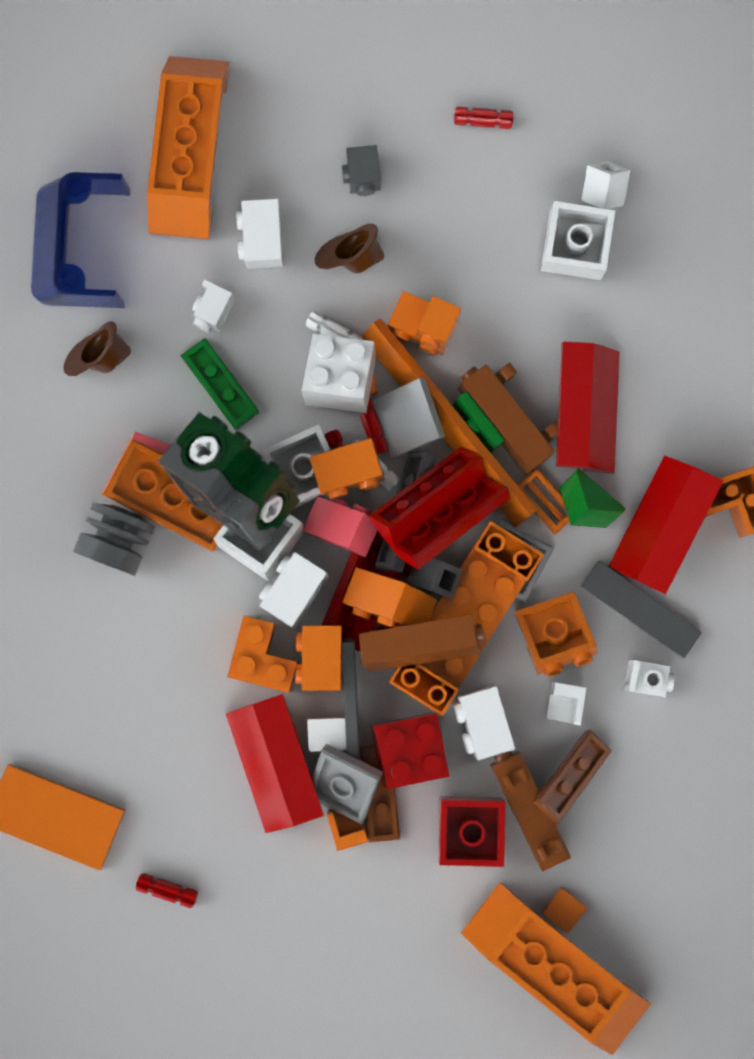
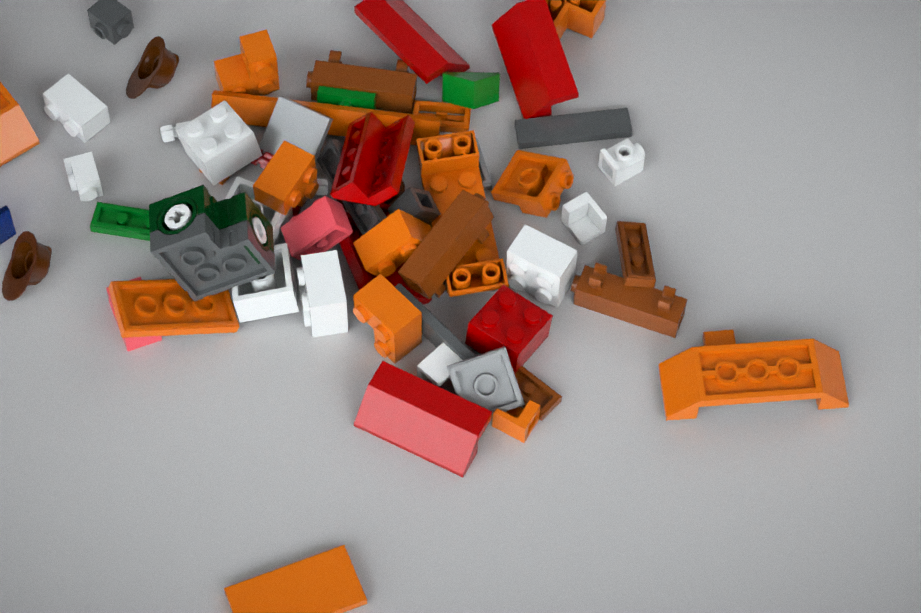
camera: 45 degrees left, 25 degrees down
(114, 538) = (158, 365): dark grey wheel -> none
(166, 890) = (430, 572): red axle -> none
(252, 658) = (341, 365): orange brick -> none
(471, 831) = (604, 342): red brick -> none

